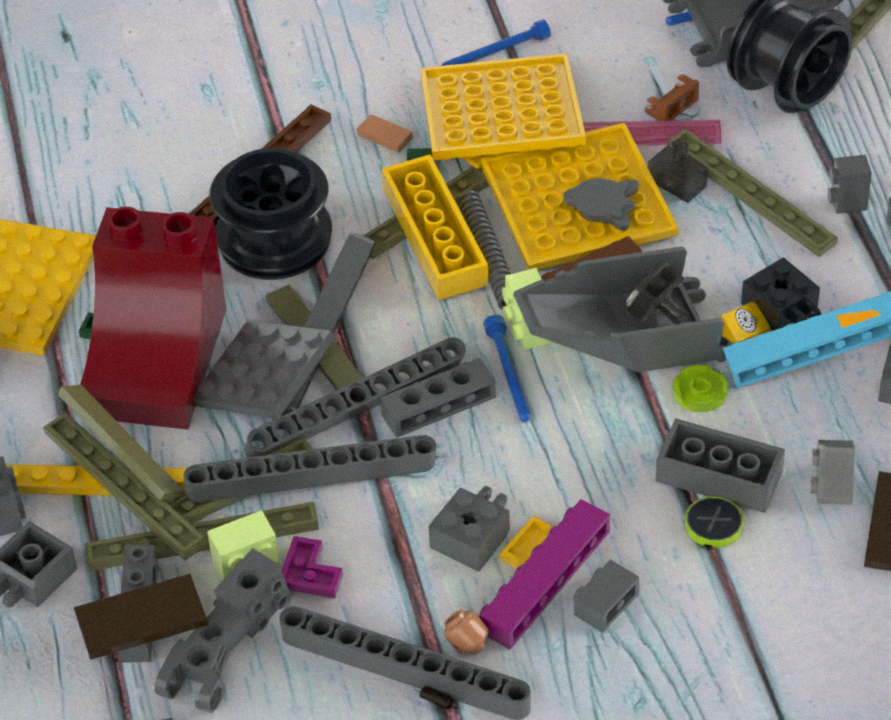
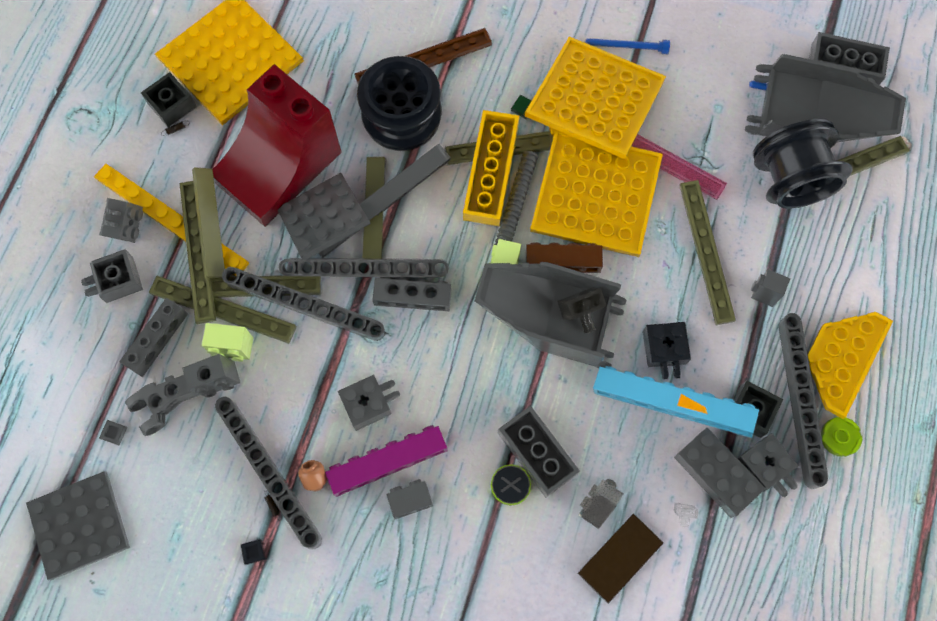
camera: 30 degrees right, 25 degrees up
(140, 616) = (137, 356): dark brown tile -> none
(303, 572) = (255, 371): magenta plate -> none
(385, 133) = (516, 73): nougat tile -> none
(495, 328) = (479, 262): blue piece -> none
(524, 542) = (394, 430): yellow tile -> none
(604, 201) = (606, 208): dark grey tile -> none
(675, 100) = (709, 150): dark orange hinge -> none
(677, 172) = (670, 211): clear smoke brick -> none
(700, 388) = (571, 381): lime tile -> none
(744, 323) = (627, 353): yellow slope -> none

